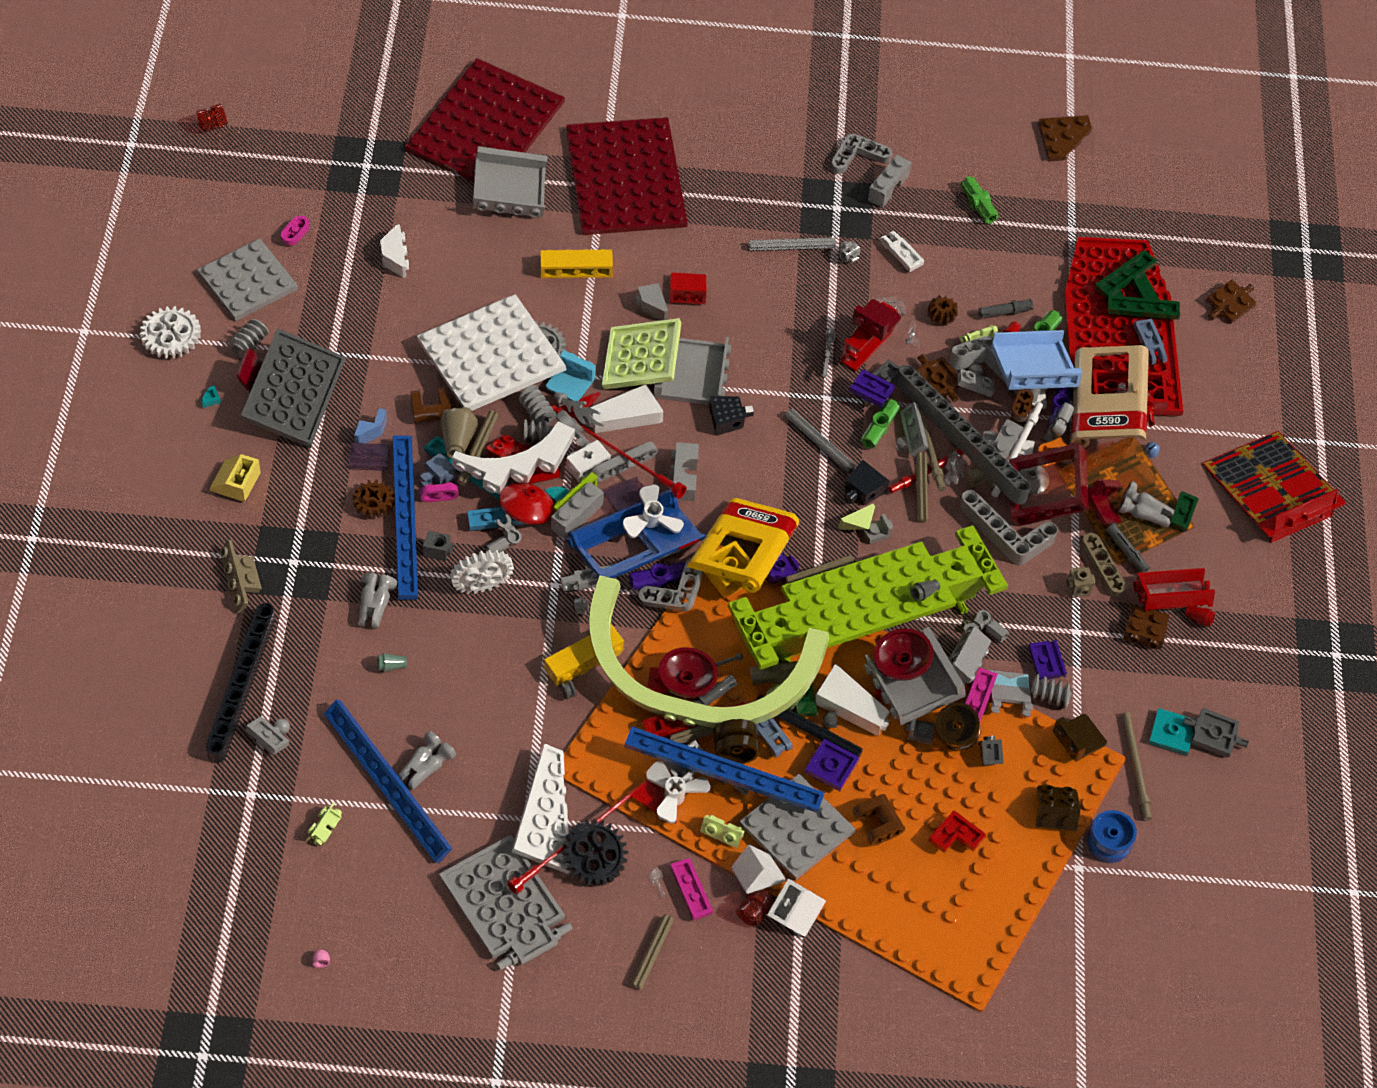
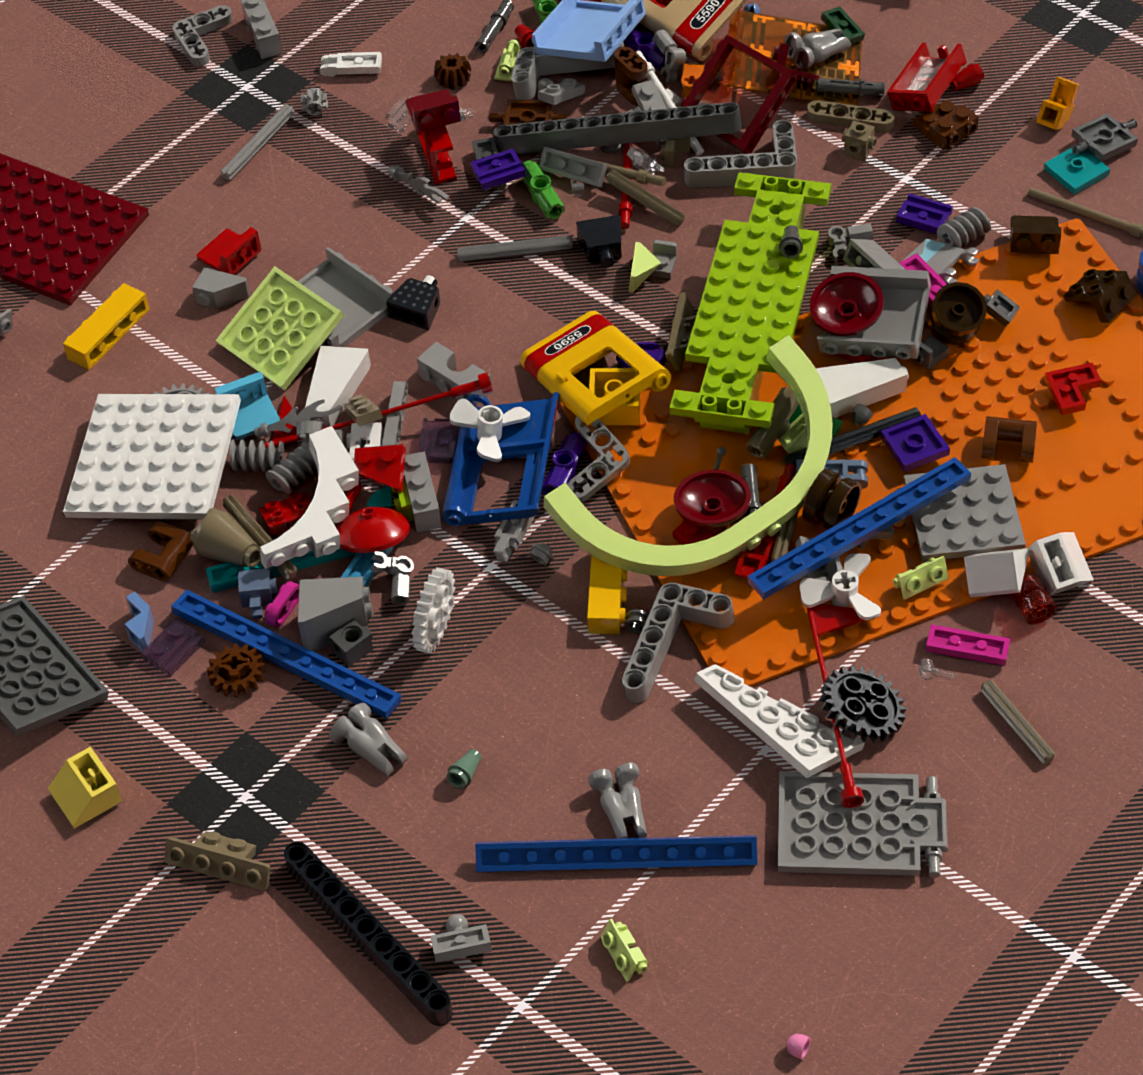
camera: 45 degrees left, 5 degrees down
(448, 516) = (329, 606): none -> light grey slope
(566, 710) = (663, 632): none -> light grey beam
(573, 476) = (382, 465): none -> red wing
(611, 439) = (362, 410): none -> dark tan plate
(1217, 689) = (1059, 106): none -> light orange brick

